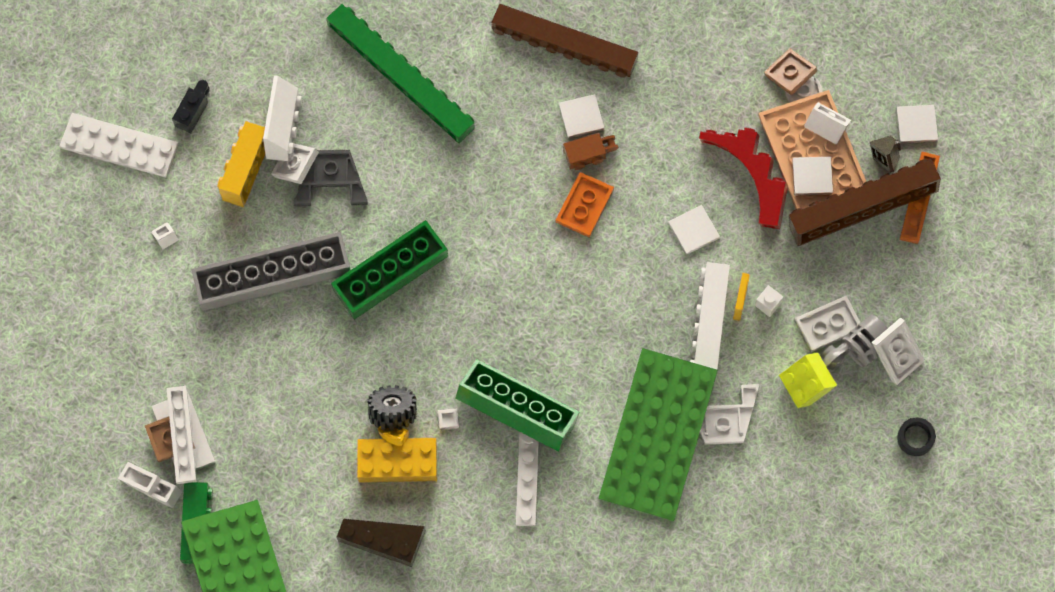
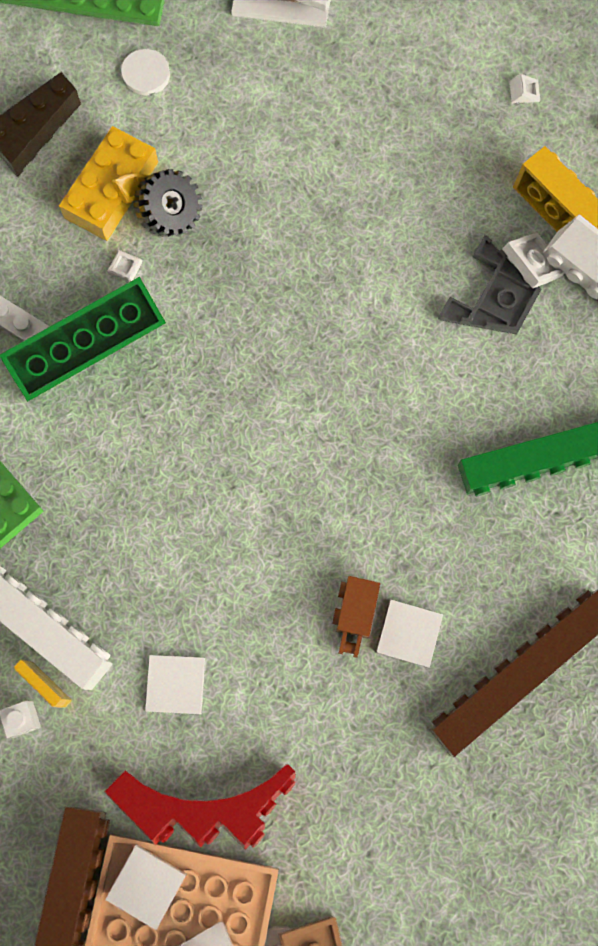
camera: 115 degrees right, 5 degrees up
(271, 271) = (412, 168): light grey brick -> none
(295, 492) = (145, 71): none -> white tile
(389, 269) = (338, 293): green brick -> none
(584, 204) = (288, 567): orange plate -> none

